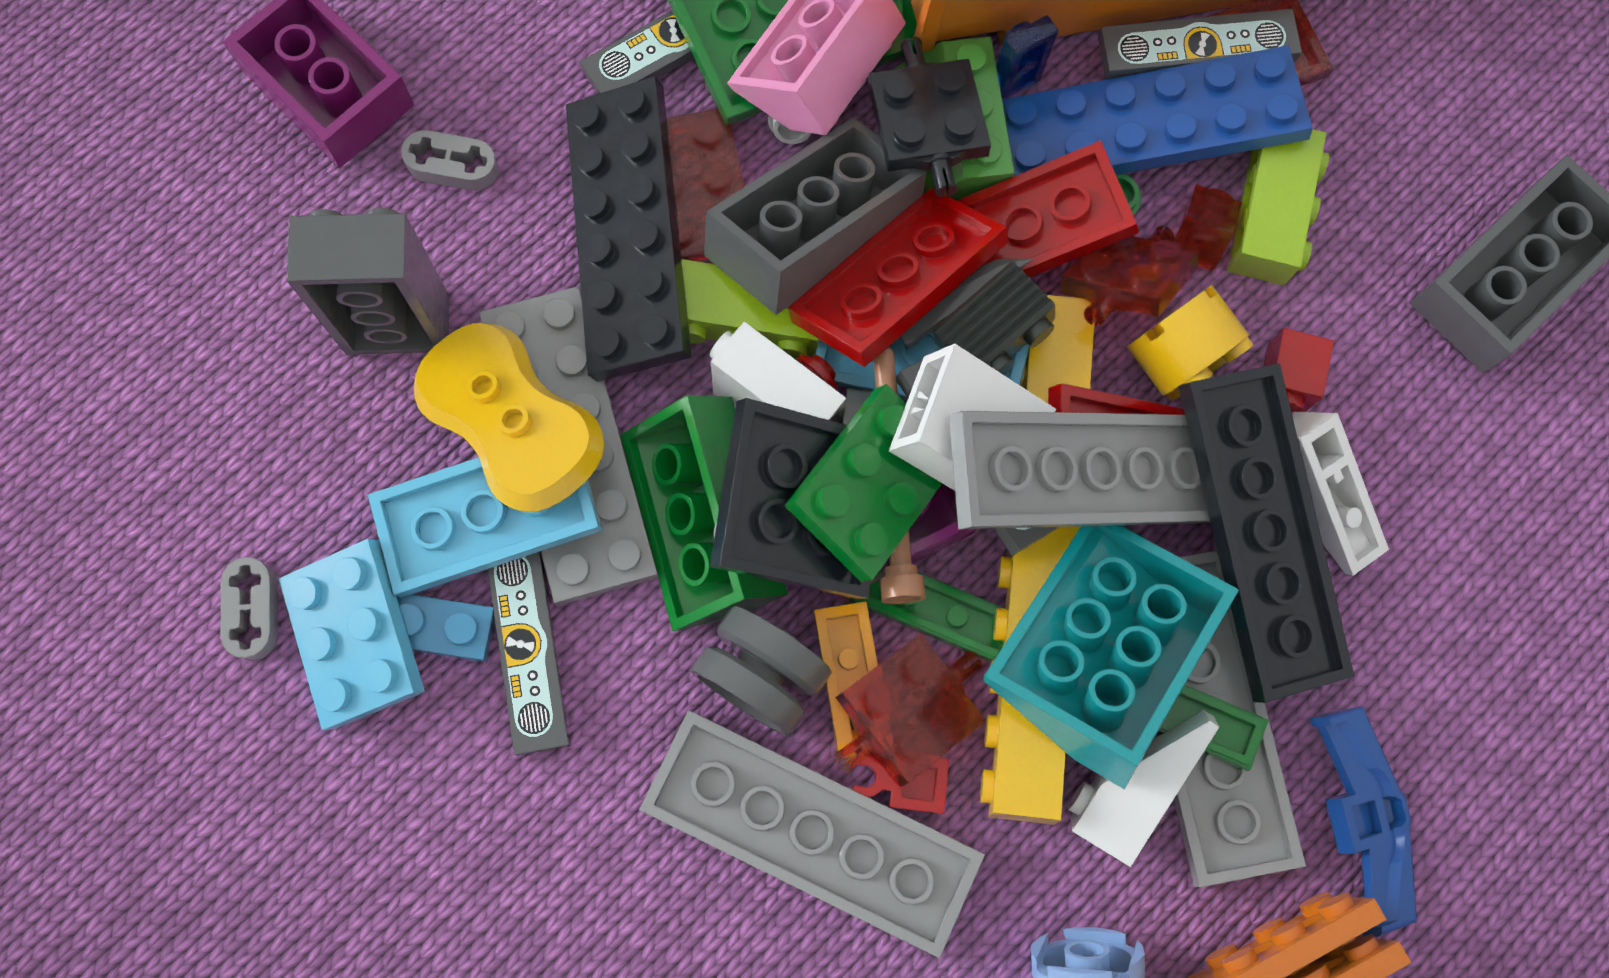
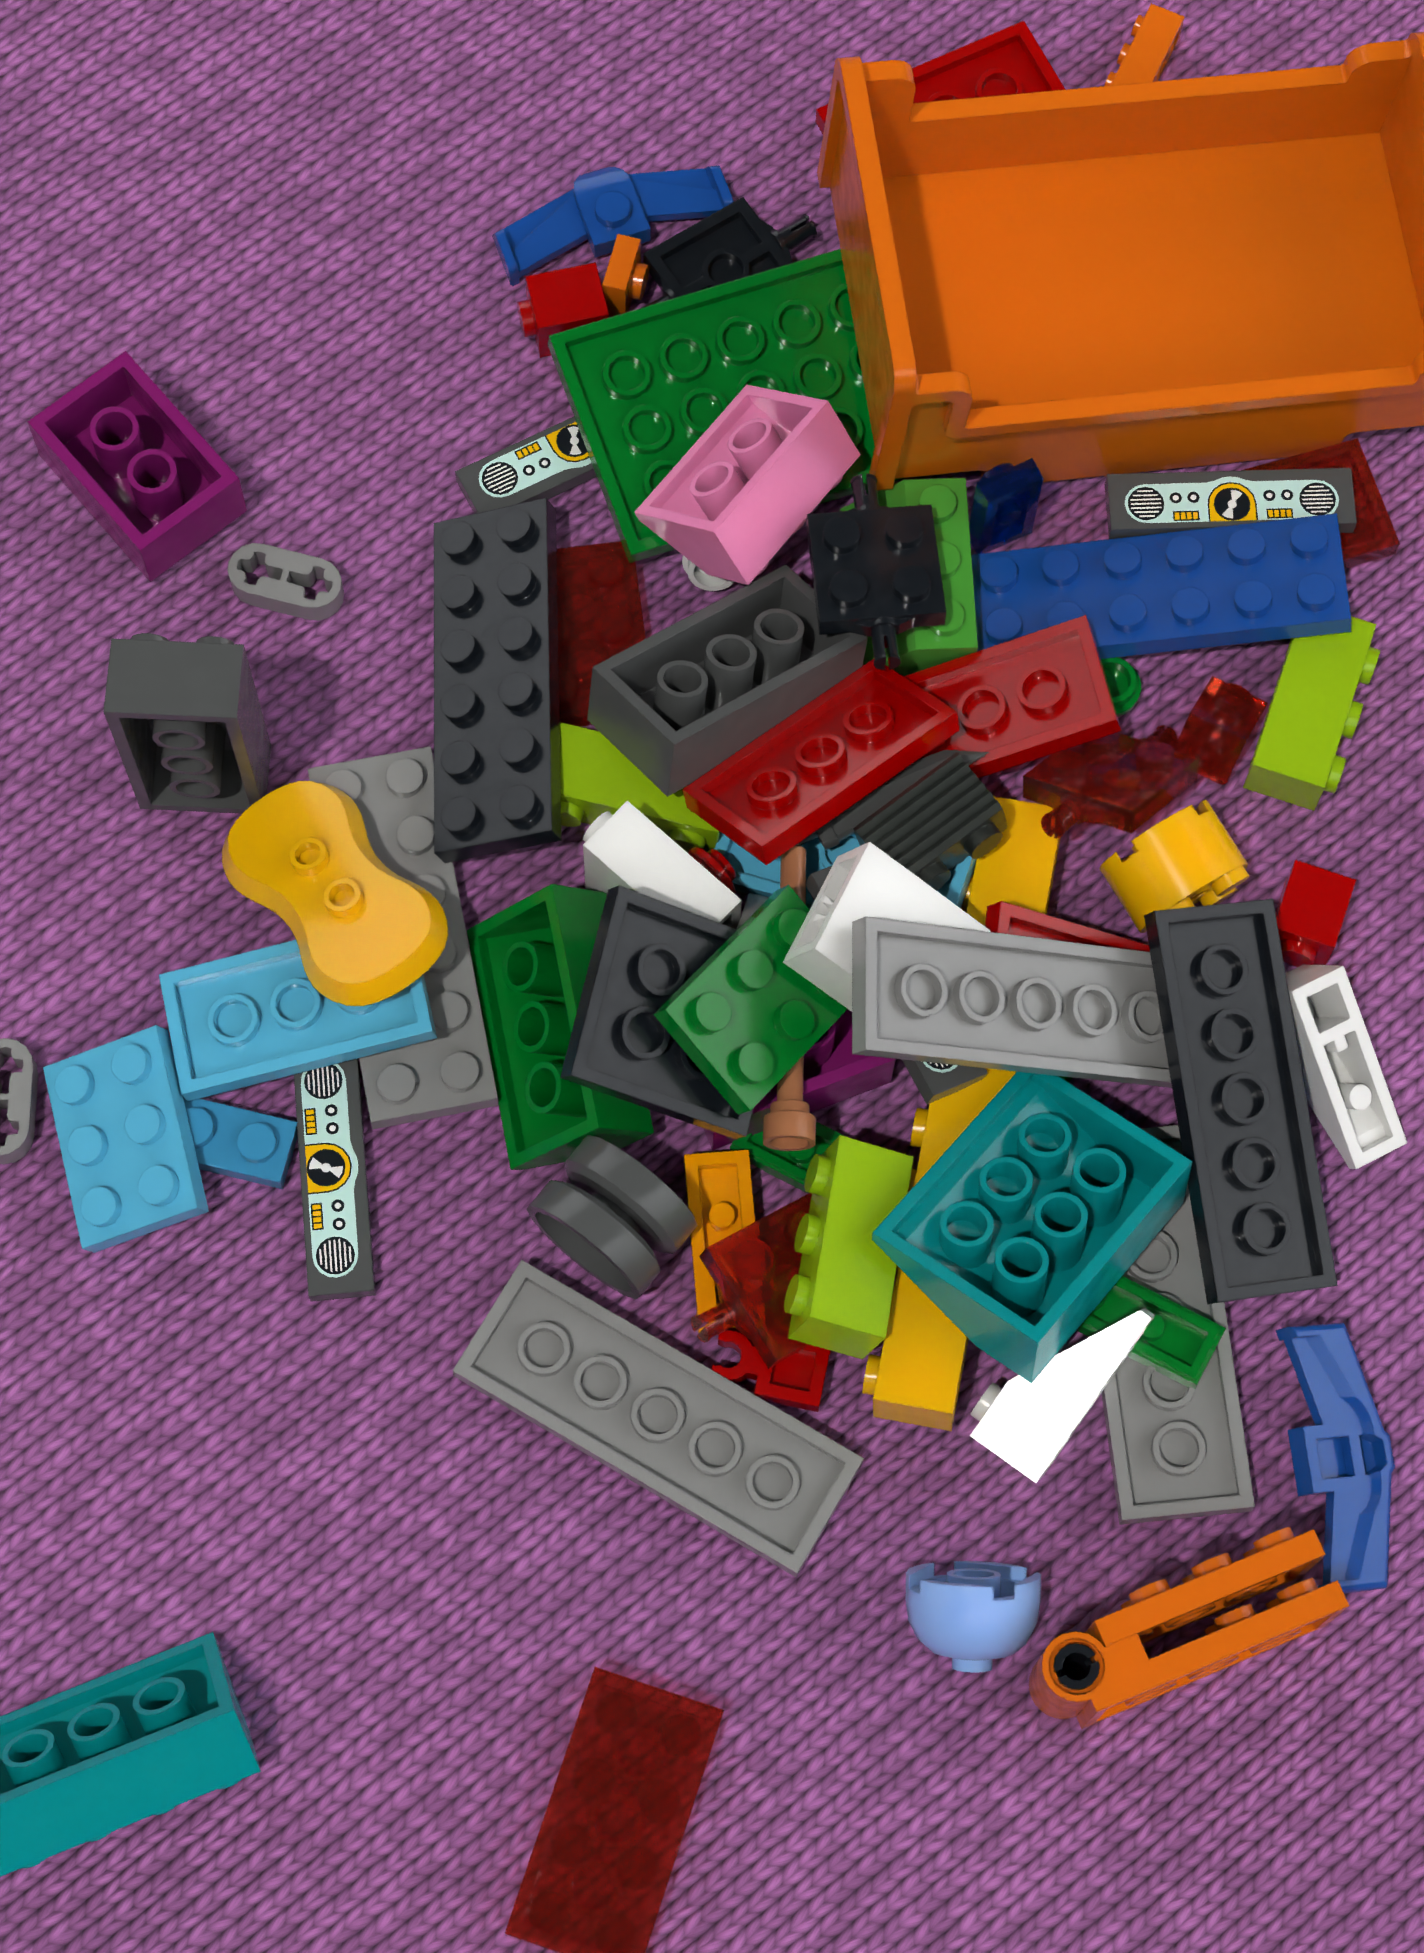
camera: 10 degrees right, 5 degrees down
(958, 712) = (843, 1275): none -> lime brick

